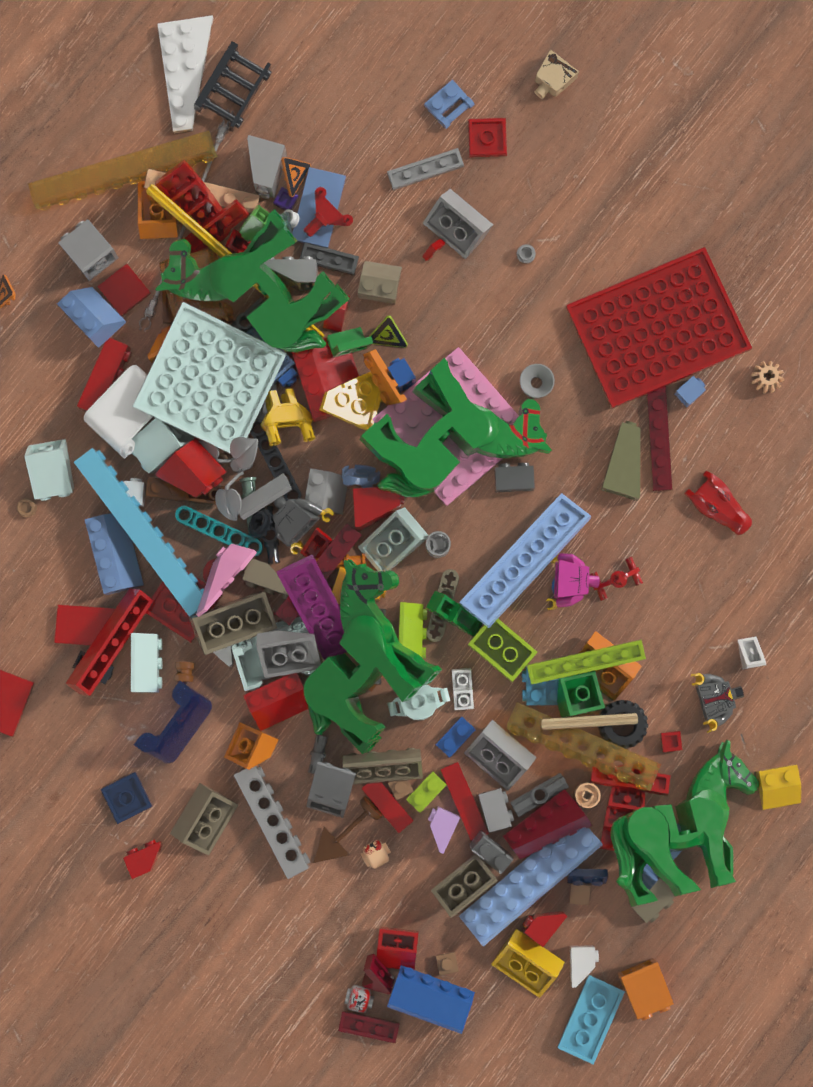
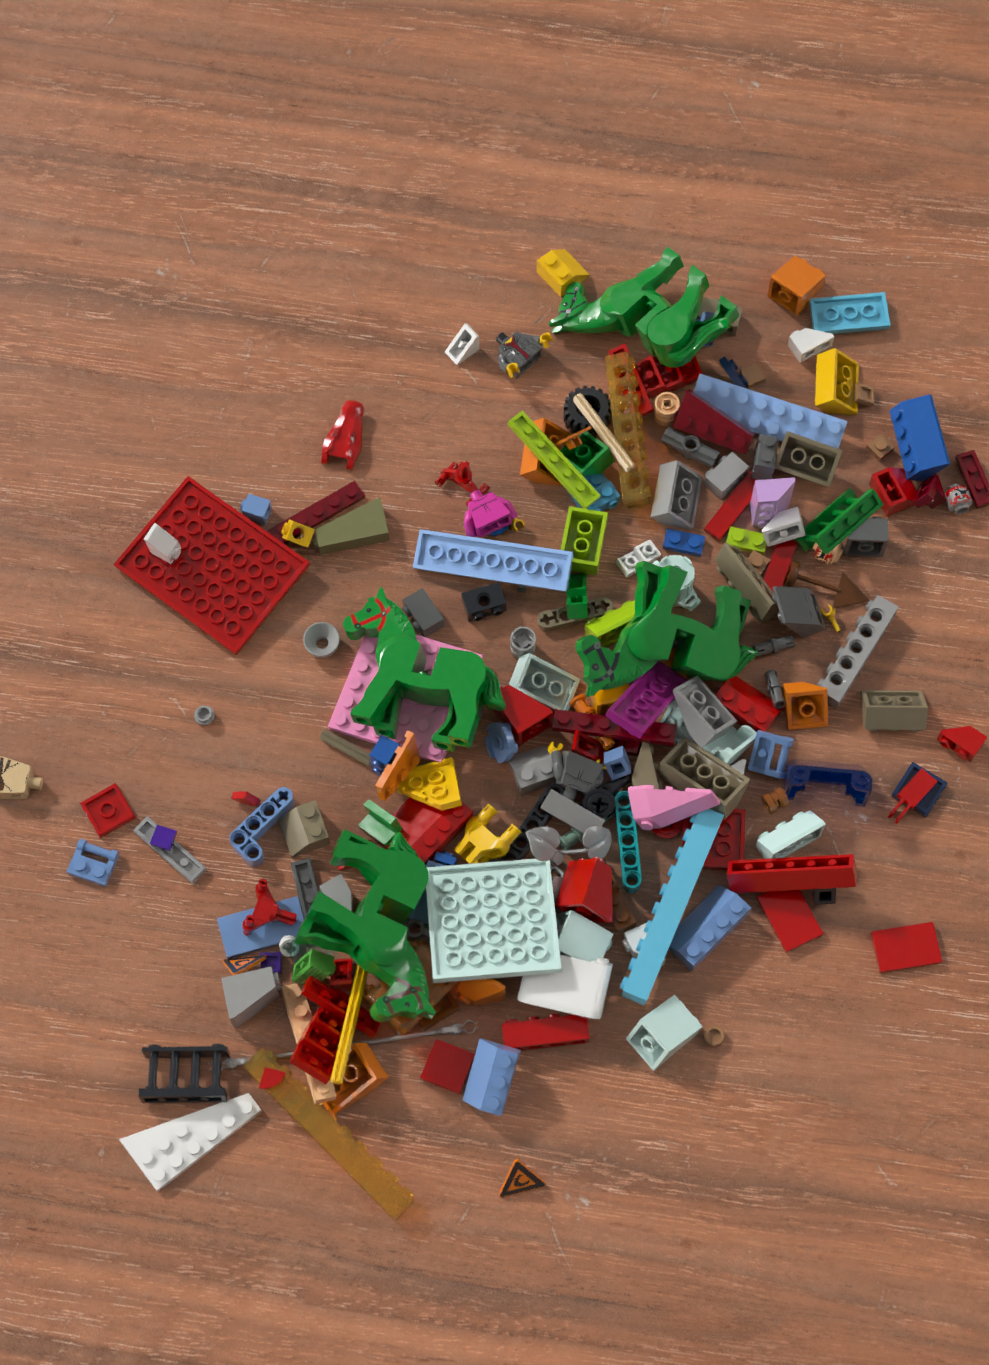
camera: 120 degrees left, 15 degrees down
(88, 249) = (427, 1120): light grey slope -> none
(123, 789) = (913, 792): none -> red arm
(185, 144) = (271, 1078): none -> red tile
(227, 685) = (763, 754): none -> medium blue plate
(277, 730) = (775, 689): none -> dark grey pin
(285, 556) = (617, 763): none -> medium blue brick
(316, 819) = (830, 615): none -> yellow hand
(363, 895) = (868, 539): none -> dark grey slope
(382, 880) = (839, 520): none -> green fence
(388, 334) = (351, 793): black piece -> none
(403, 252) = (265, 823): none -> medium blue beam
(415, 828) = (784, 527): none -> white slope
(432, 353) = (345, 746): none -> dark tan axle
(436, 166) = (163, 838): none -> dark purple tile
(457, 223) = (208, 789): light grey slope -> none
(502, 525) = (491, 594): none -> black brick
(504, 981) = (864, 394): none -> medium nougat tile
(543, 925) = (797, 383): red slope -> none
(599, 684) = (573, 440): none -> orange piece
(637, 413) = (305, 536): none -> yellow brick
(671, 741) = (577, 369): red plate -> none
(694, 291) = (162, 544): none -> white slope
(773, 373) = (214, 454): light nougat gear -> none

